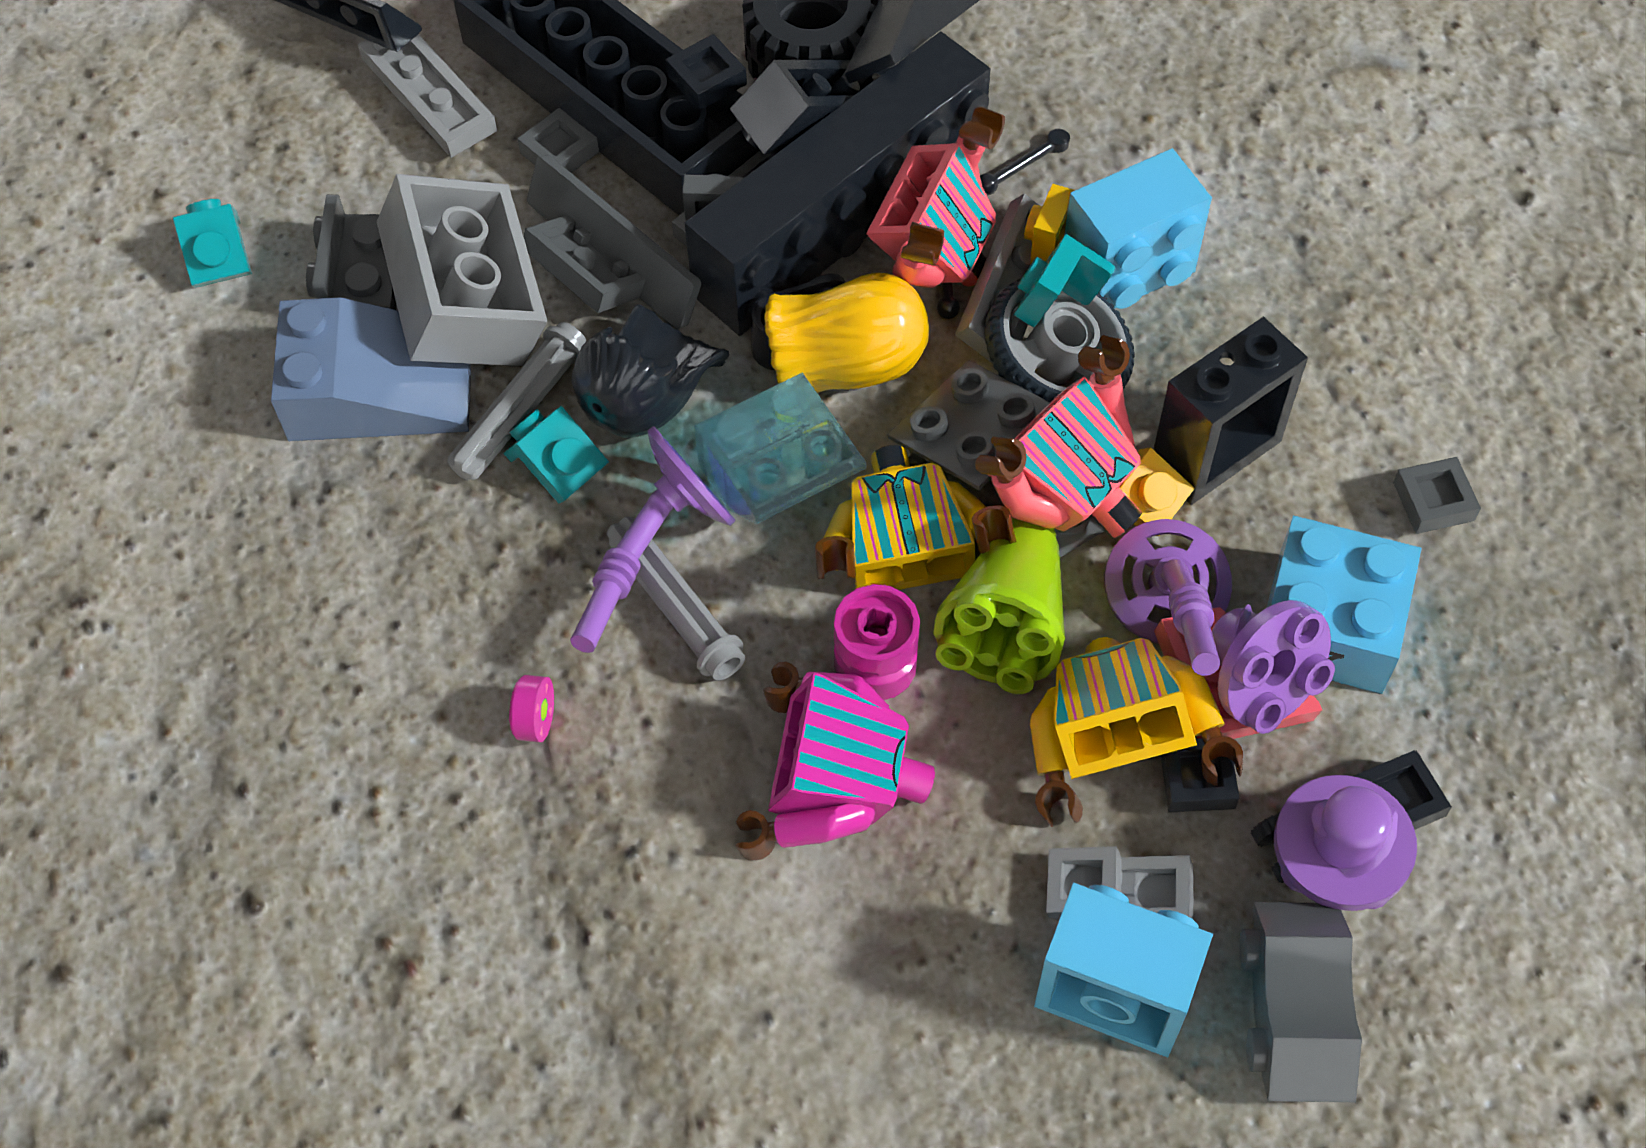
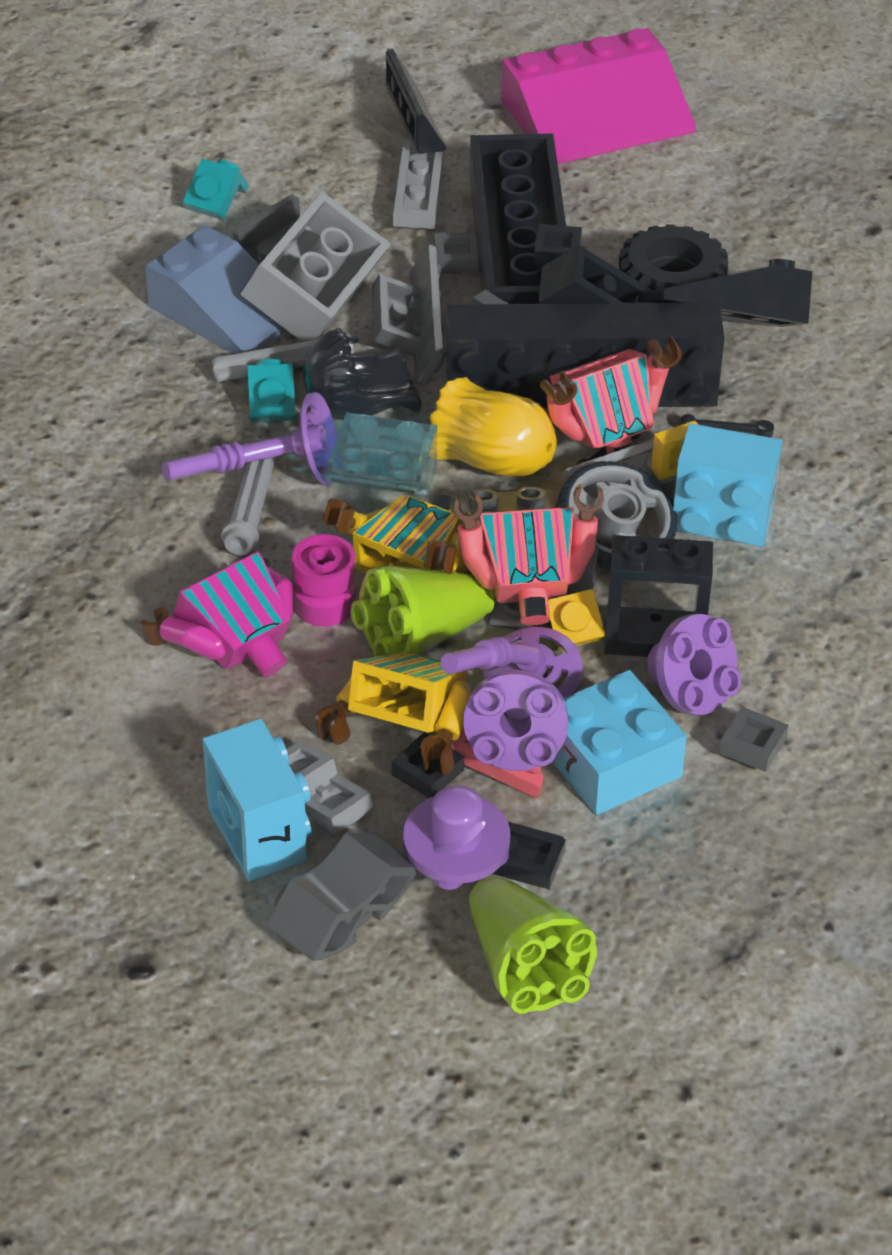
camera: 40 degrees right, 15 degrees down
(531, 708) = (115, 493): dark pink tile -> none
(1068, 269) = (639, 465): teal bracket -> none
(1312, 460) = (695, 664): none -> medium lavender plate
(1521, 898) = (531, 946): none -> lime cone

